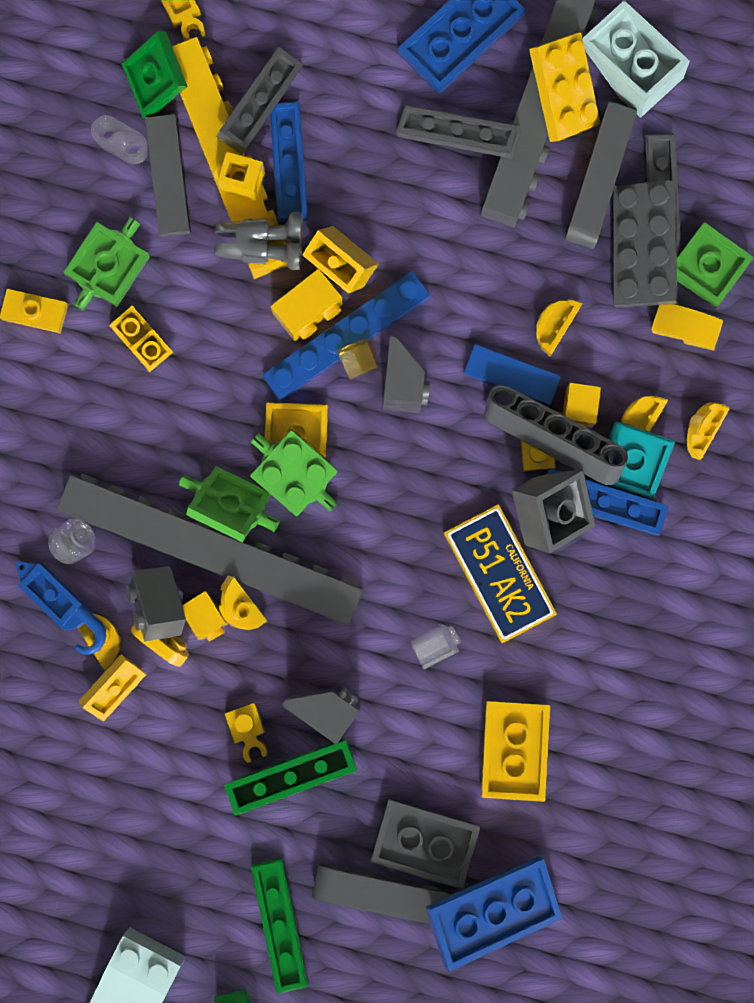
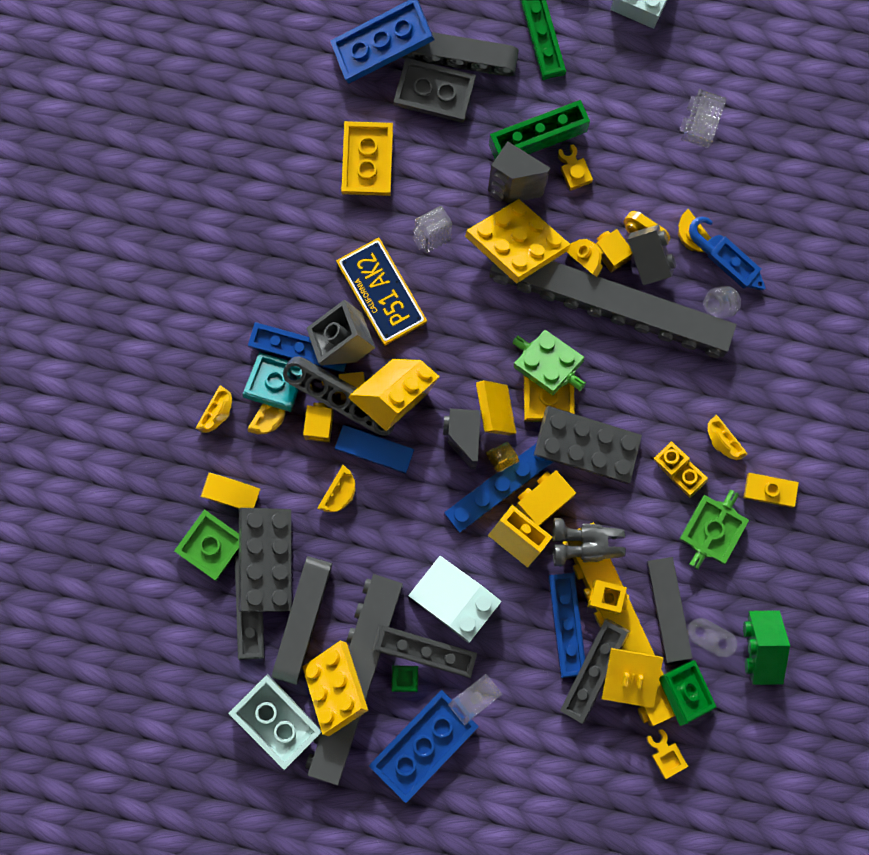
camera: 175 degrees right, 5 degrees down
(53, 121) = (767, 647): none -> green brick
(75, 791) = (703, 118): none -> clear brick
(85, 372) = (724, 440): none -> yellow plate
(112, 688) = (681, 195): yellow plate -> none
(217, 85) = (632, 678): none -> yellow piece
(228, 503) = (600, 334): bright green plate -> none
(252, 368) = (587, 445): none -> dark grey plate
(326, 626) = (517, 240): none -> yellow plate
(363, 413) = (495, 408): none -> yellow tile
(400, 77) = (475, 699): none -> clear slope
(419, 191) = (454, 599): none -> light aqua slope
(481, 105) = (404, 678): none -> green tile
(489, 437) = (394, 390): none -> yellow slope

